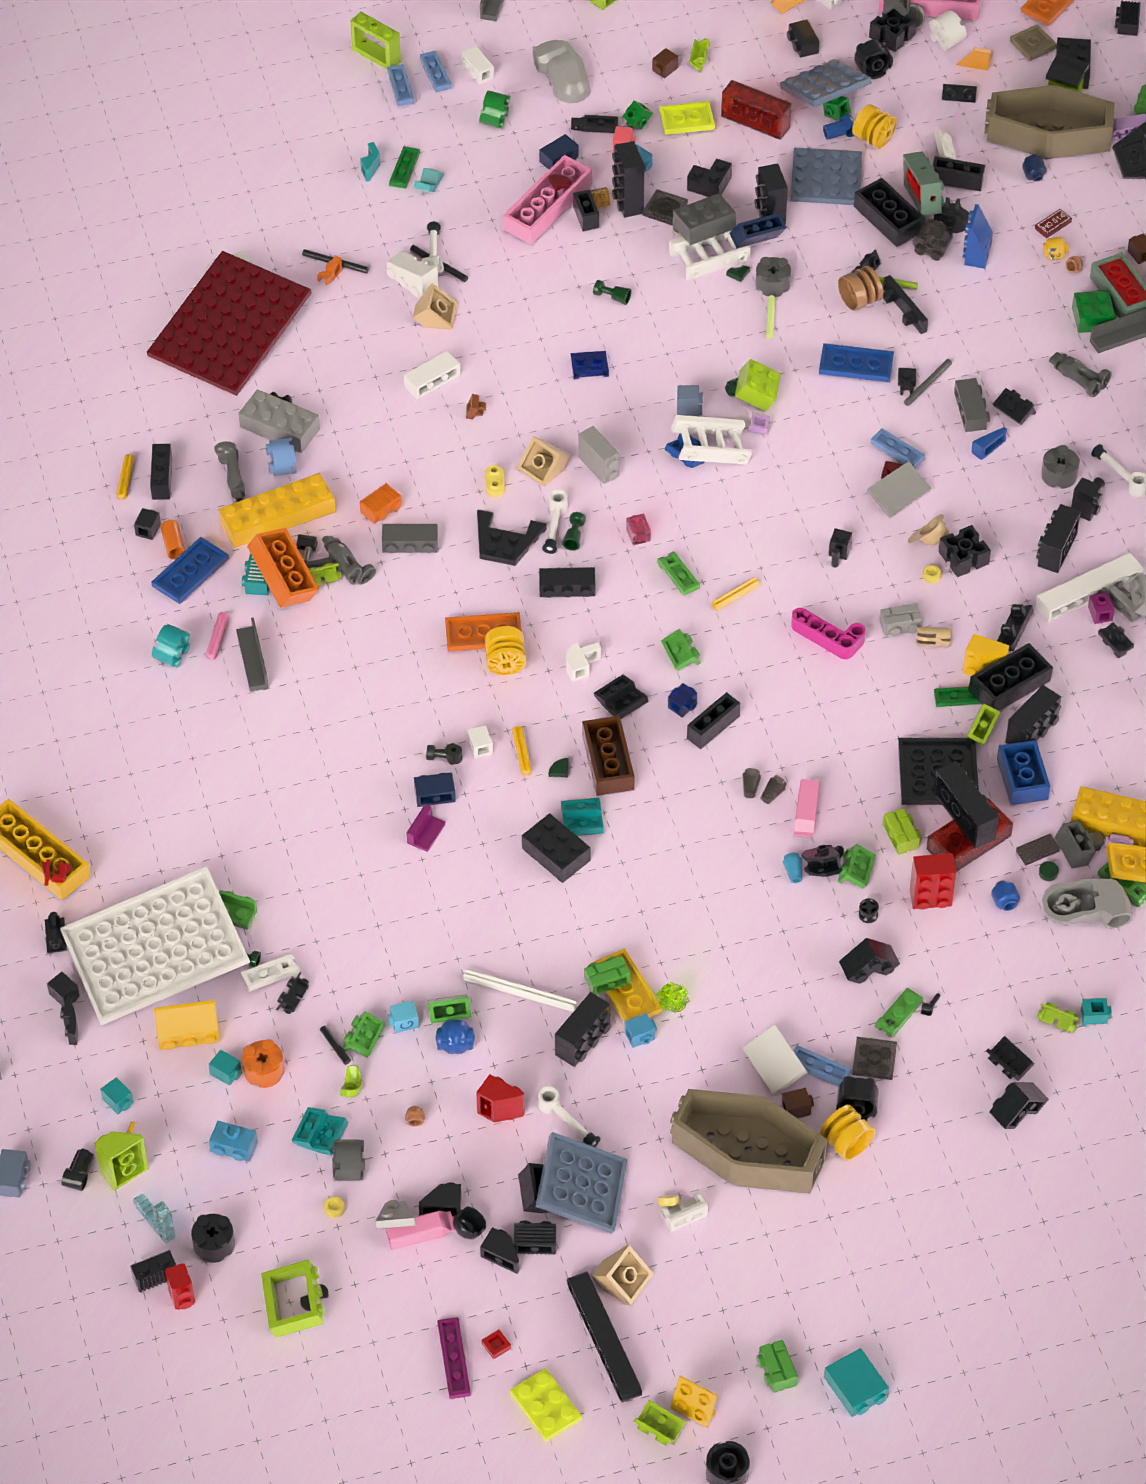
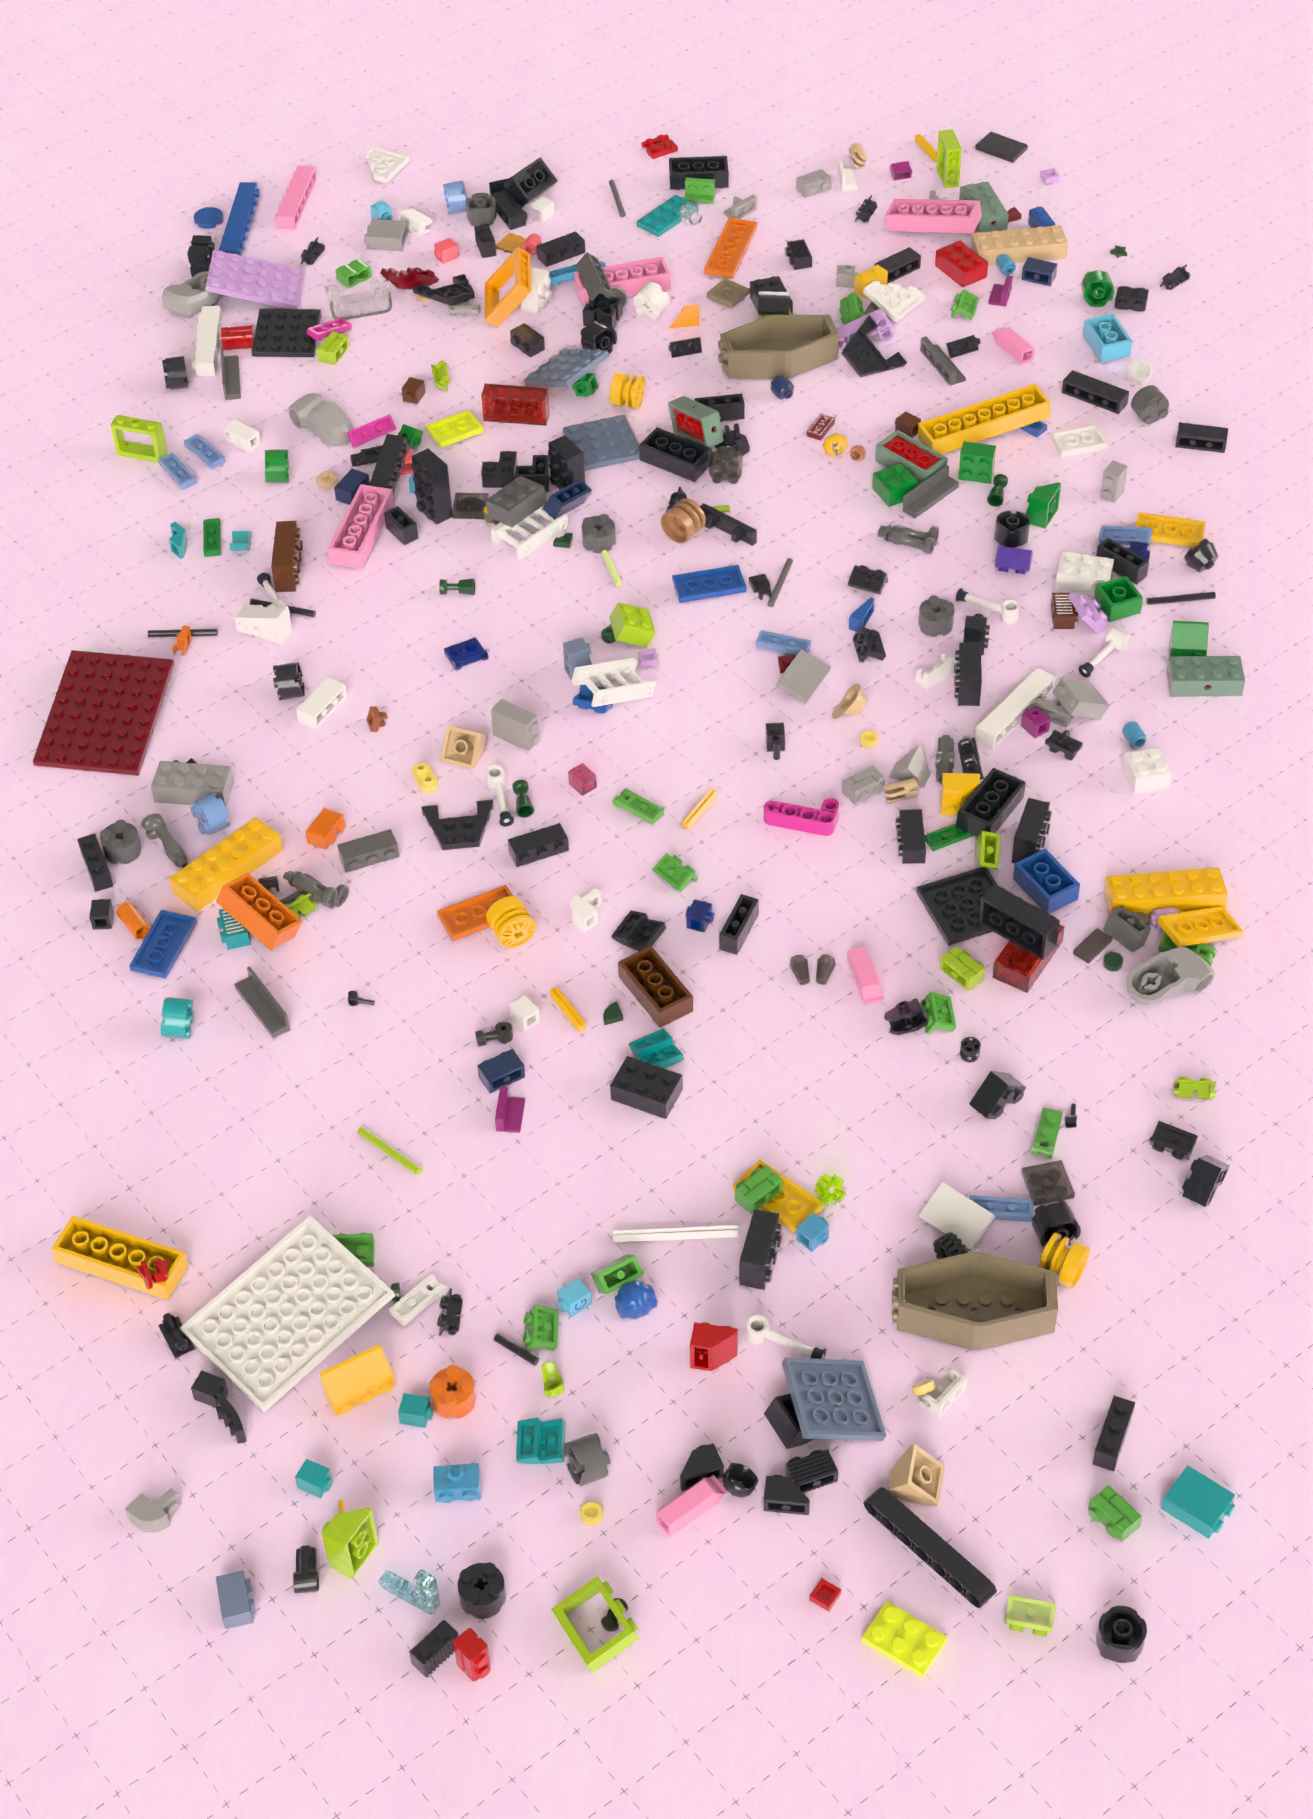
camera: 20 degrees left, 5 degrees down
(125, 476) = (59, 878): yellow axle -> none
(191, 459) = (120, 842): none -> dark grey brick
(217, 635) = (217, 996): bright pink axle -> none
(305, 829) = (389, 1150): none -> lime bar
(336, 678) = (353, 999): none -> black hand
(395, 1215) = (663, 1497): light grey wing -> none
(409, 343) = (288, 681): none -> black brick
(414, 1116) = (631, 1392): nougat plate -> none
(435, 309) = (298, 646): tan slope -> none
(453, 1358) = (788, 1625): magenta tile -> none
(462, 211) = (286, 556): none -> reddish brown brick
(538, 138) = (327, 480): none -> tan plate
(559, 181) = (367, 506): dark red tile -> none
(601, 197) = (410, 510): clear yellow tile -> none
(602, 140) = (390, 462): none -> black brick
(604, 96) = (371, 431): none -> dark pink plate
(694, 1401) = (1054, 1579): yellow hinge -> none
(740, 195) = (538, 472): none -> black brick
(750, 1084) = (948, 1246): none -> black tyre
(793, 866) = (879, 1031): dark azure cone -> none
(797, 1102) = (1000, 1246): reddish brown brick -> none
(813, 1298) = (1113, 1433): none -> black brick
(842, 127) = (599, 398): blue piece -> none
(920, 686) = (911, 836): none -> black brick
(932, 881) = (1020, 1001): red brick -> none
(944, 145) = (693, 388): white plate -> none
(957, 617) = (912, 766): none -> light grey slope
(964, 551) = (890, 709): black brick -> none
(971, 404) = (829, 589): dark grey brick -> none
(978, 239) = (766, 454): blue slope -> none
(980, 475) = (868, 643): none -> black bracket
(994, 616) = (944, 757): none -> dark grey piece
(1005, 895) = (1088, 994): blue head -> none
(1029, 526) = (935, 673): none -> white hinge
(1095, 1011) = (1225, 1071): teal brick -> none

